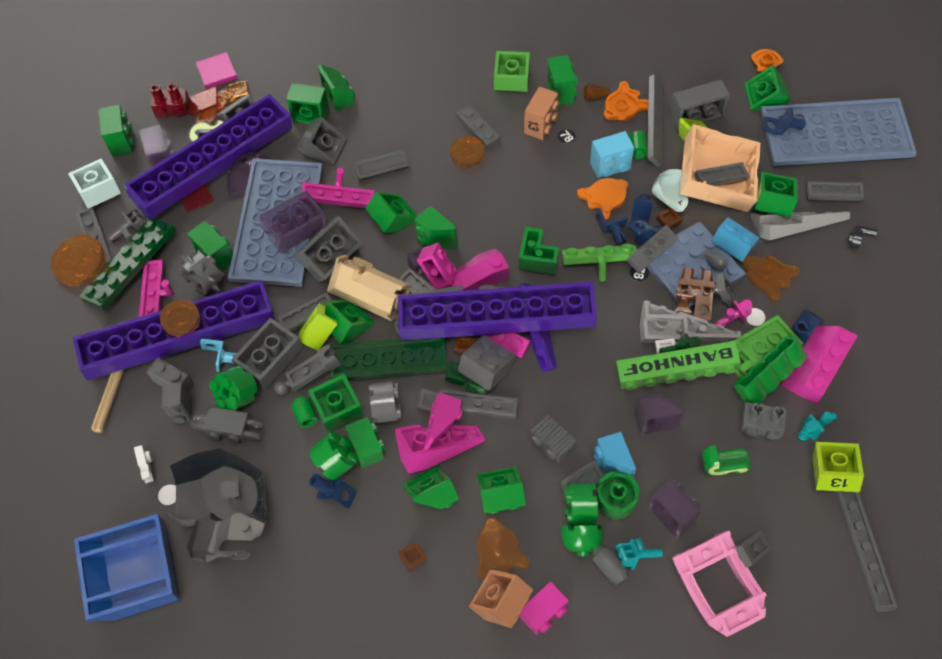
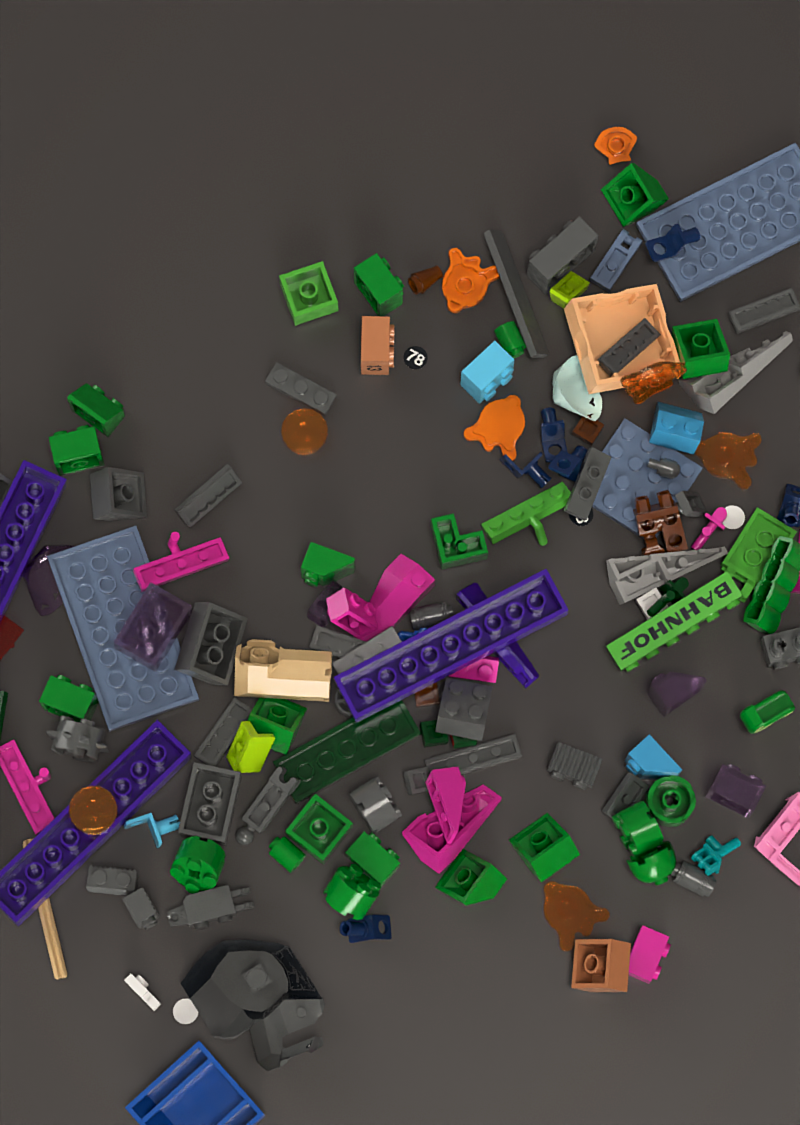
camera: 30 degrees left, 15 degrees up
(390, 212) = (256, 558): green slope -> none
(412, 556) = (486, 960): reddish brown plate -> none
(730, 197) = (652, 380): none -> clear orange tile
(738, 123) = (615, 261): none -> sand blue plate

